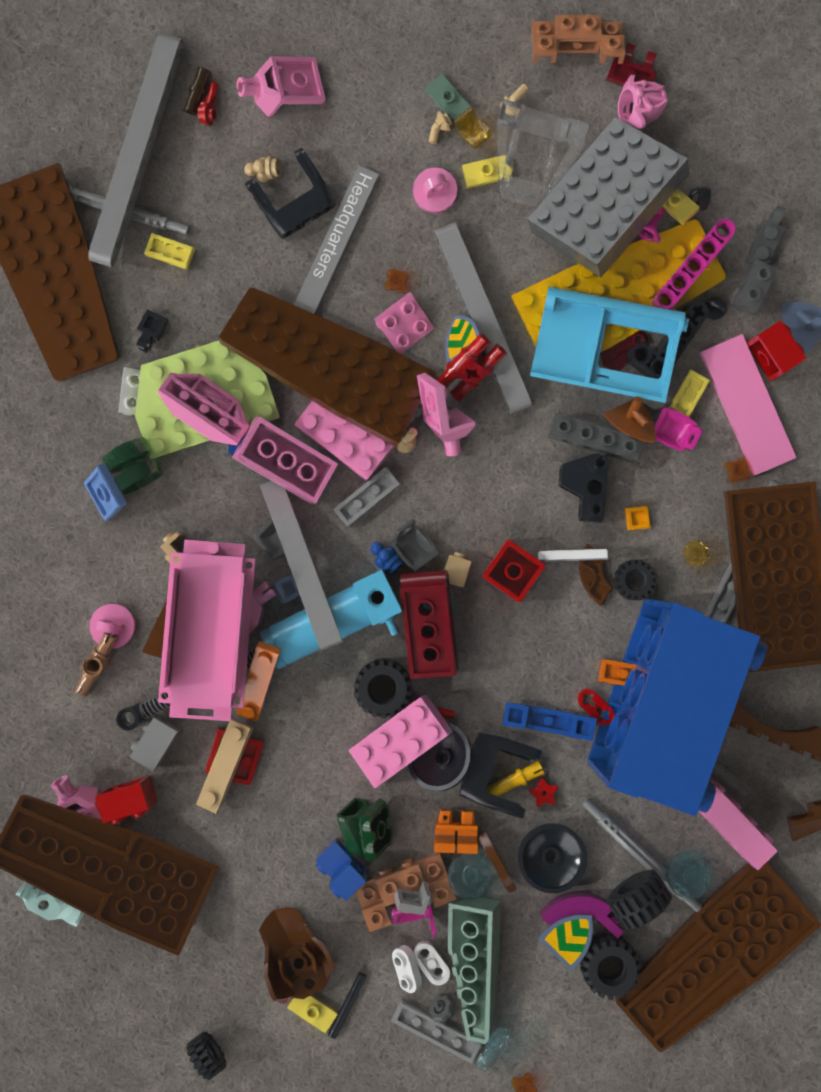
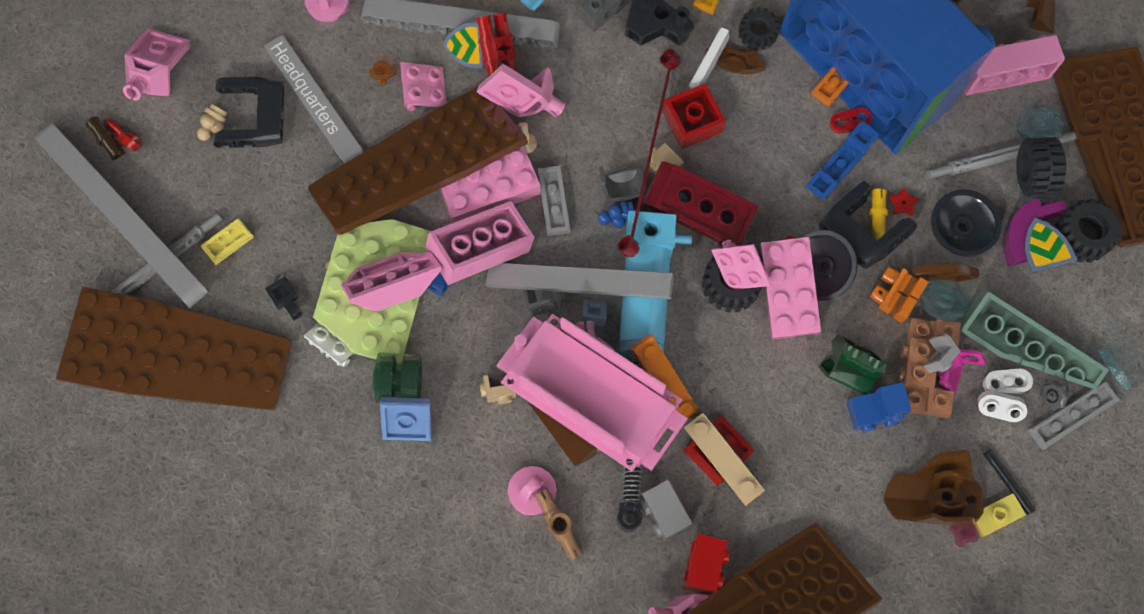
camera: 60 degrees left, 15 degrees down
(345, 588) = (628, 245): none -> dark red piece
(386, 690) = (740, 266): none -> bright pink hinge

